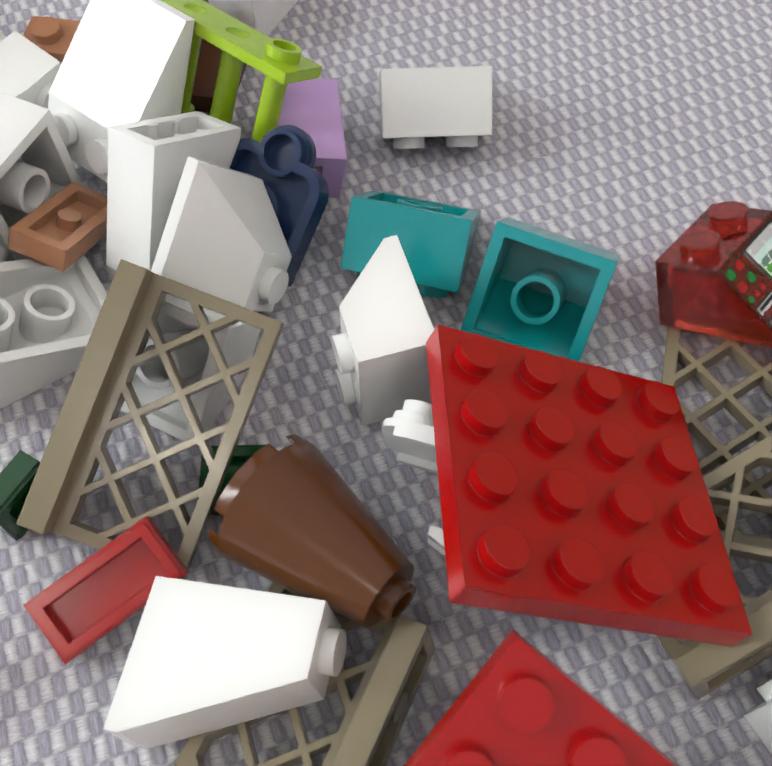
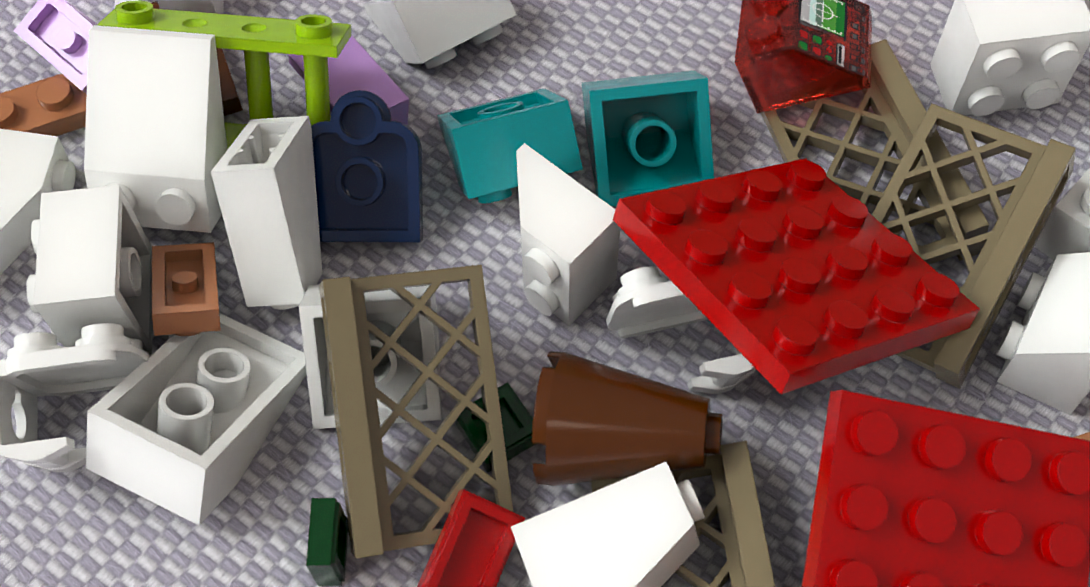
camera: 30 degrees left, 0 degrees up
(224, 238) = (367, 223): white slope -> none

